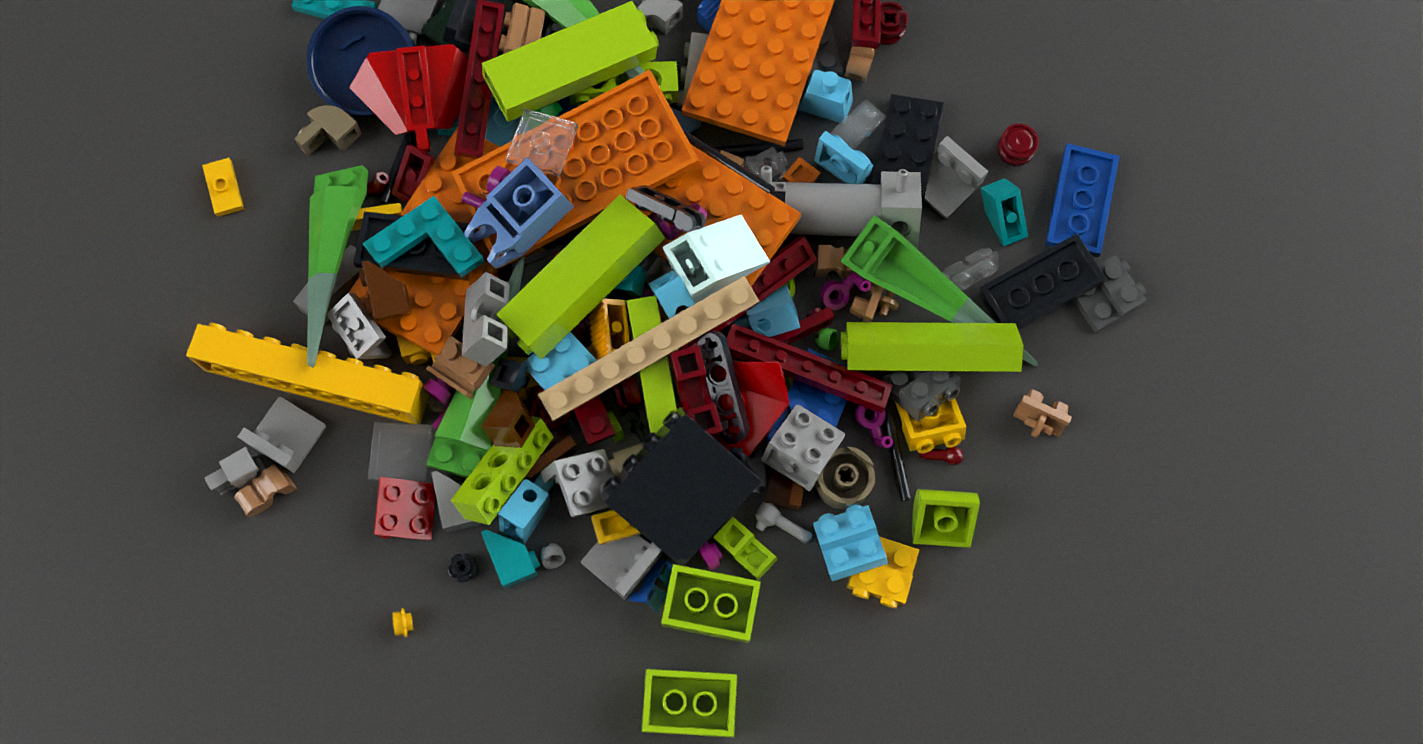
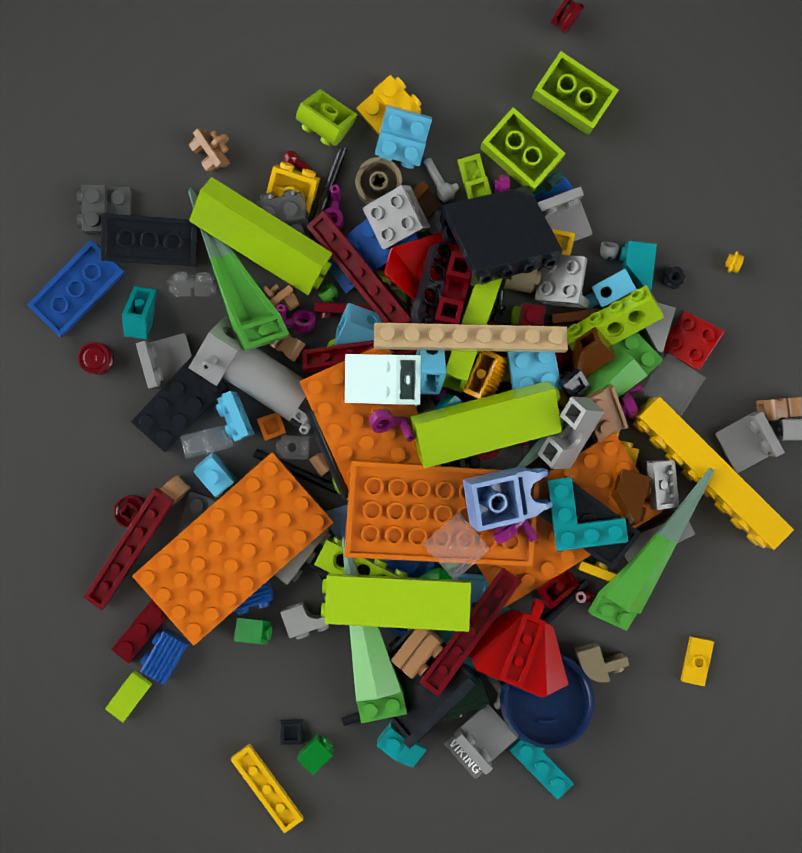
camera: 145 degrees left, 15 degrees up
(668, 208) = (398, 433): black hinge -> none

